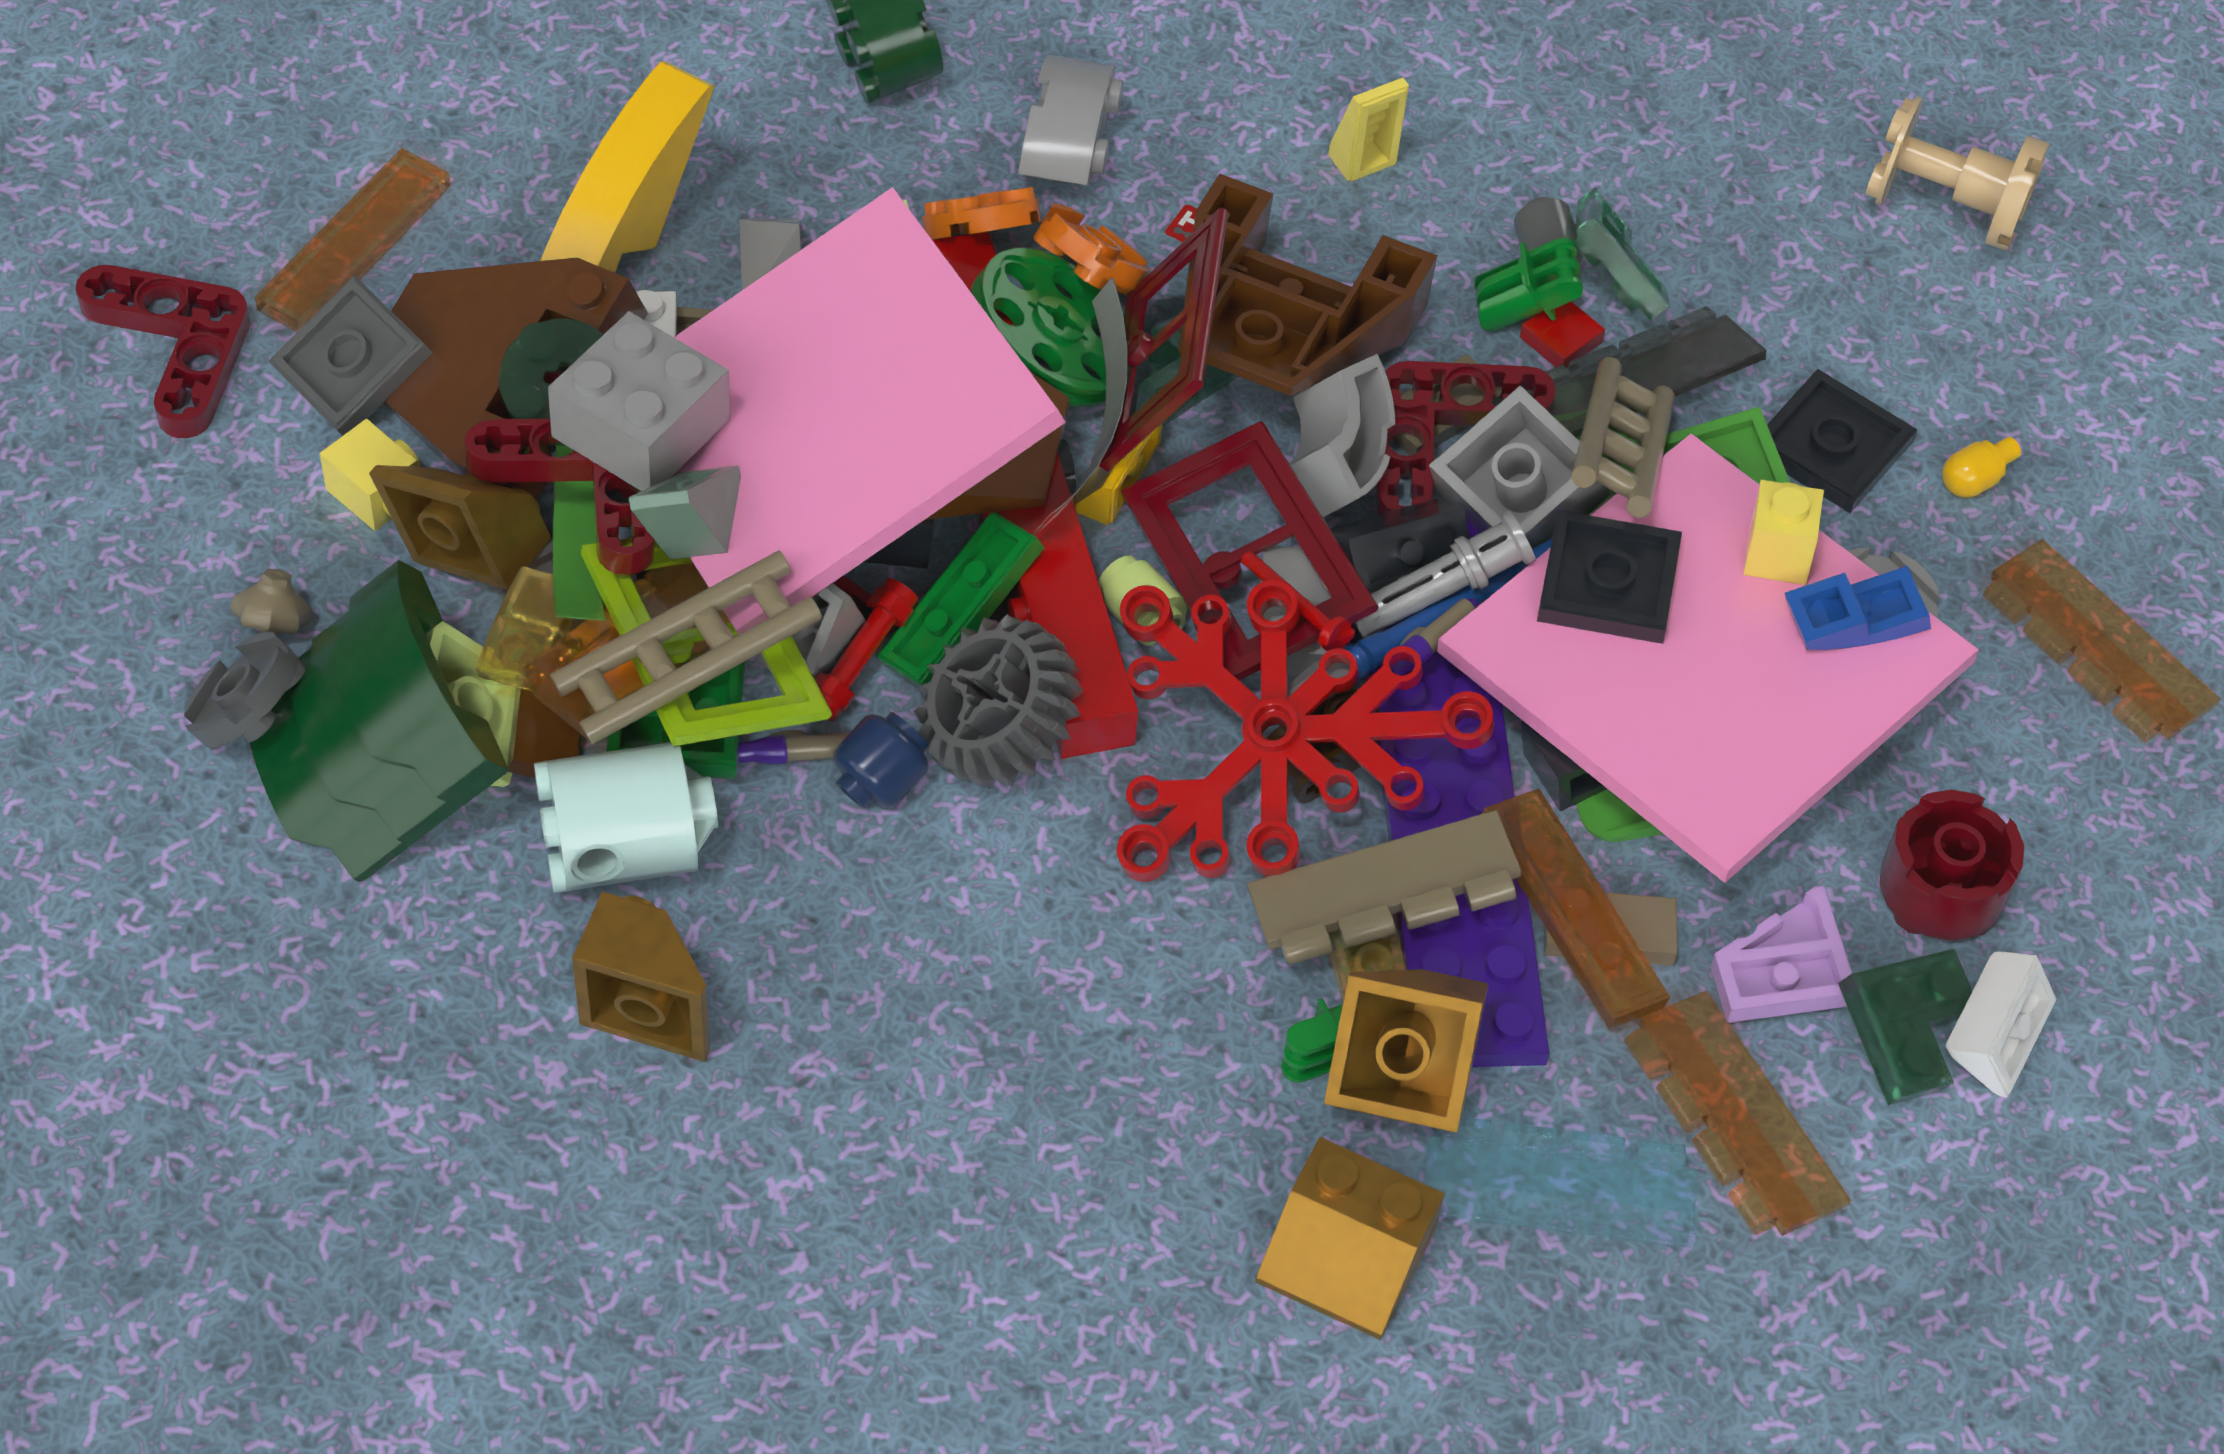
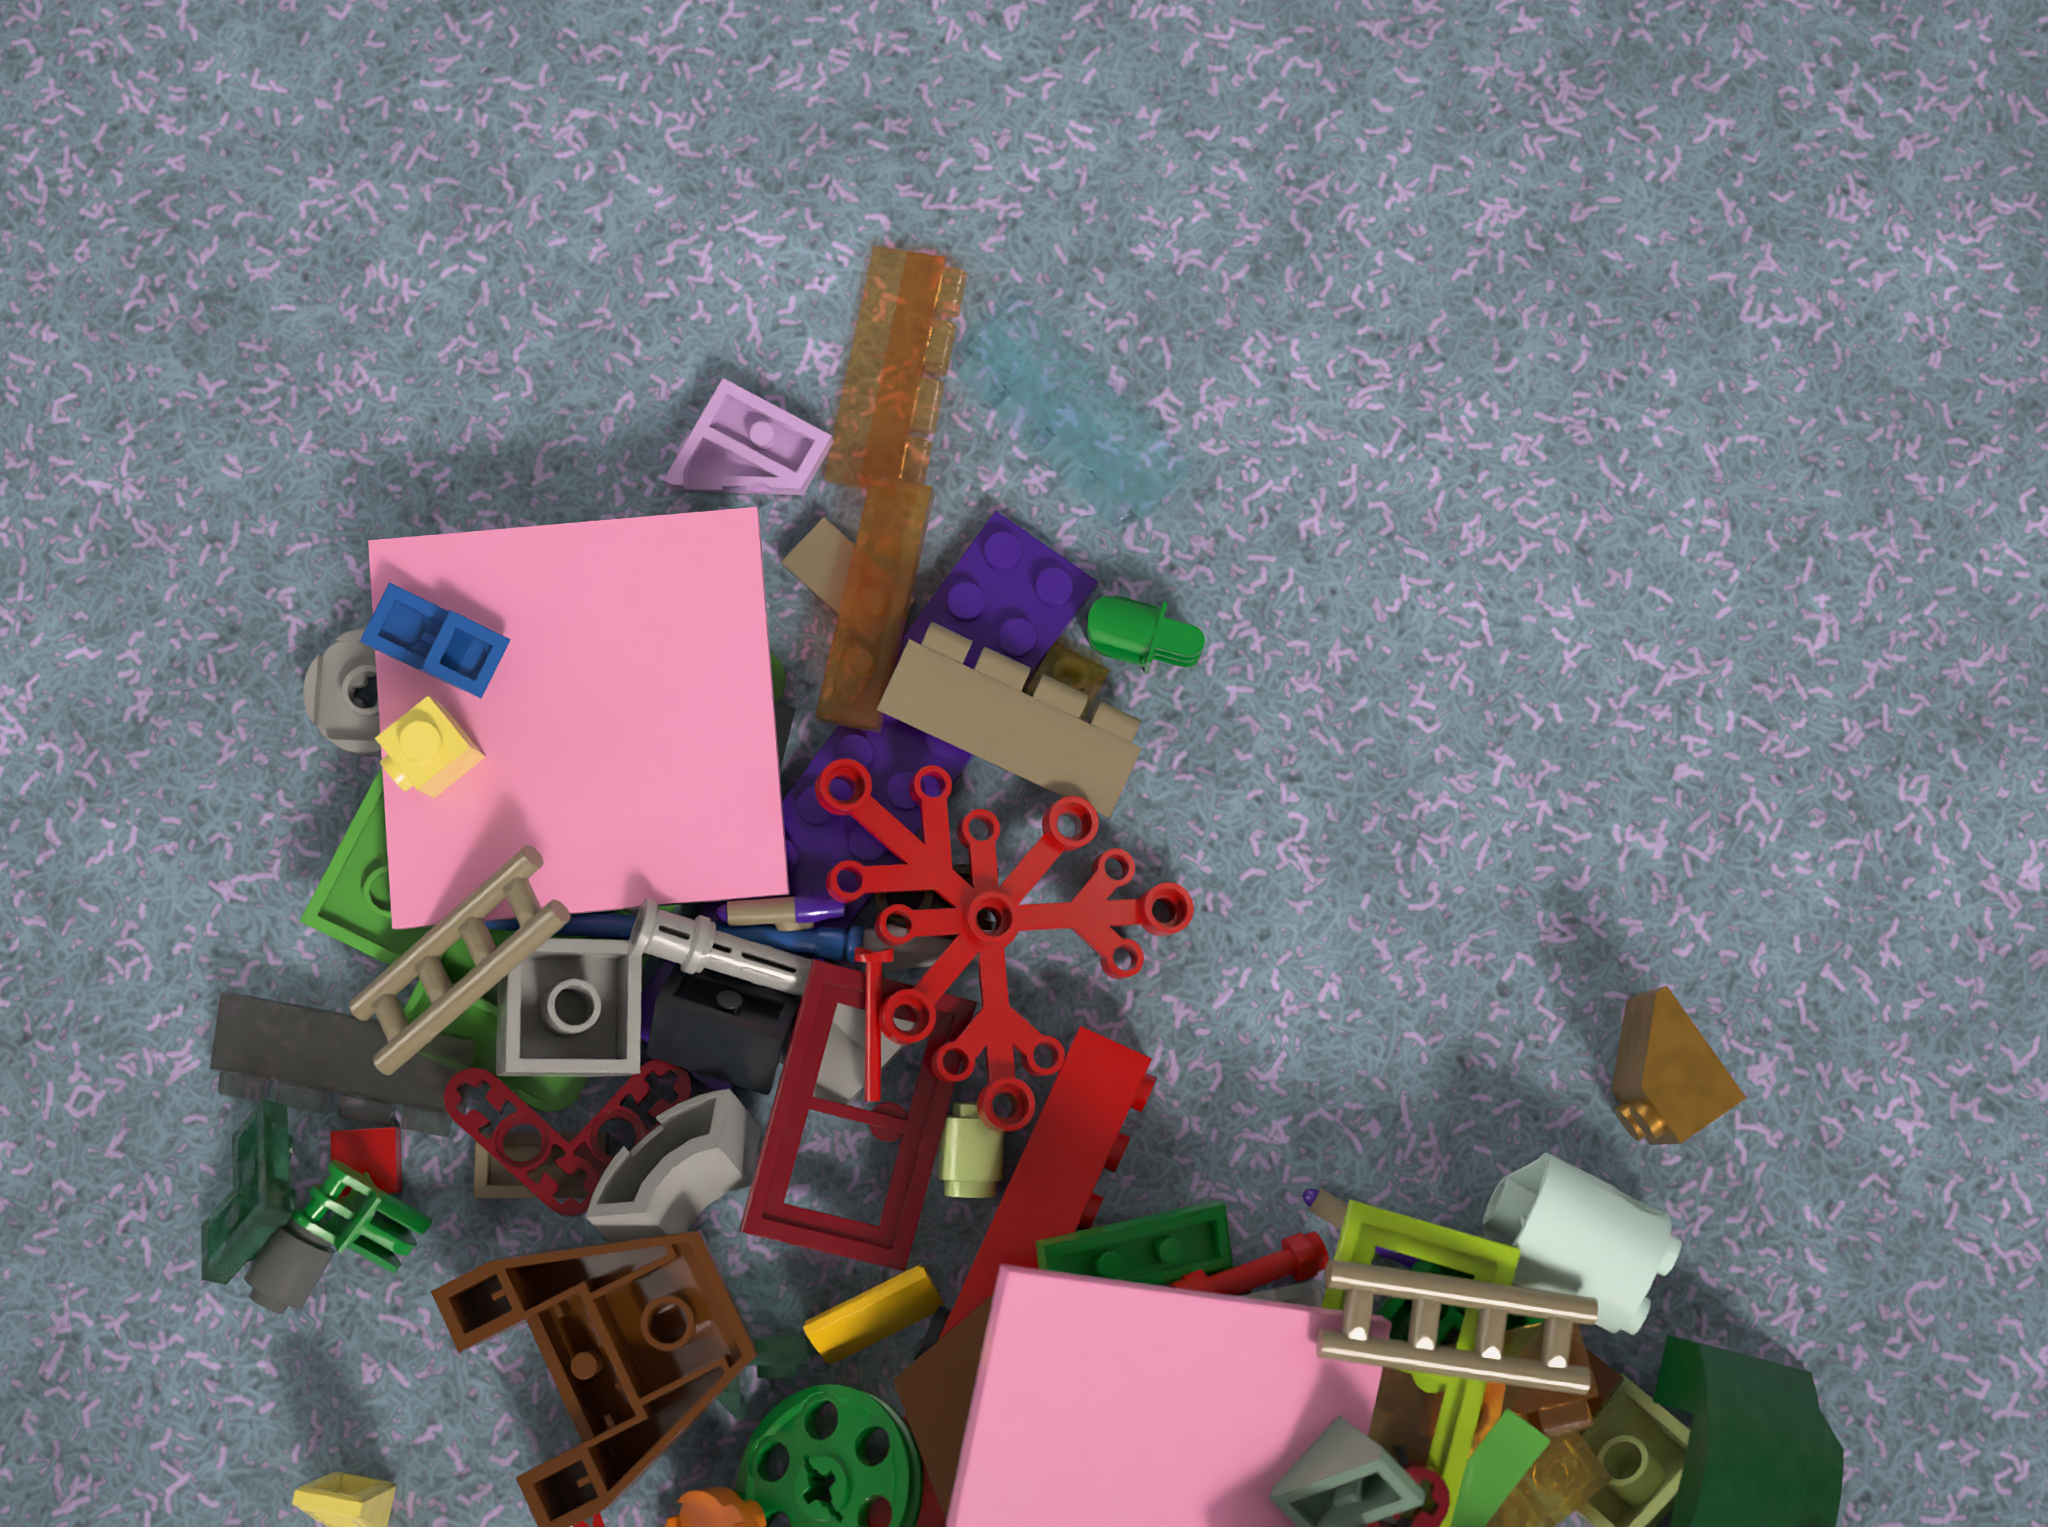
camera: 135 degrees left, 25 degrees up
(880, 760) = (1313, 1152): dark blue head -> none
(1002, 664) = (1172, 1108): dark grey gear -> none
(1113, 335) = (862, 1341): light grey sticker -> none
(1207, 246) = (822, 1268): dark red door -> none
(1350, 1237) = (1272, 475): pearl gold slope -> none
(1406, 1045) = (1117, 562): pearl gold slope -> none
(1610, 576) = (600, 835): black tile -> none
(1837, 440) = (240, 876): black tile -> none
(1895, 1015) = (704, 347): clear green plate -> none
(1950, 866) = (558, 381): dark red brick -> none
(1979, 466) = (151, 755): yellow cylinder -> none
(2002, 1020) = (632, 286): white slope -> none
(2110, 646) = (213, 538): clear orange windscreen -> none

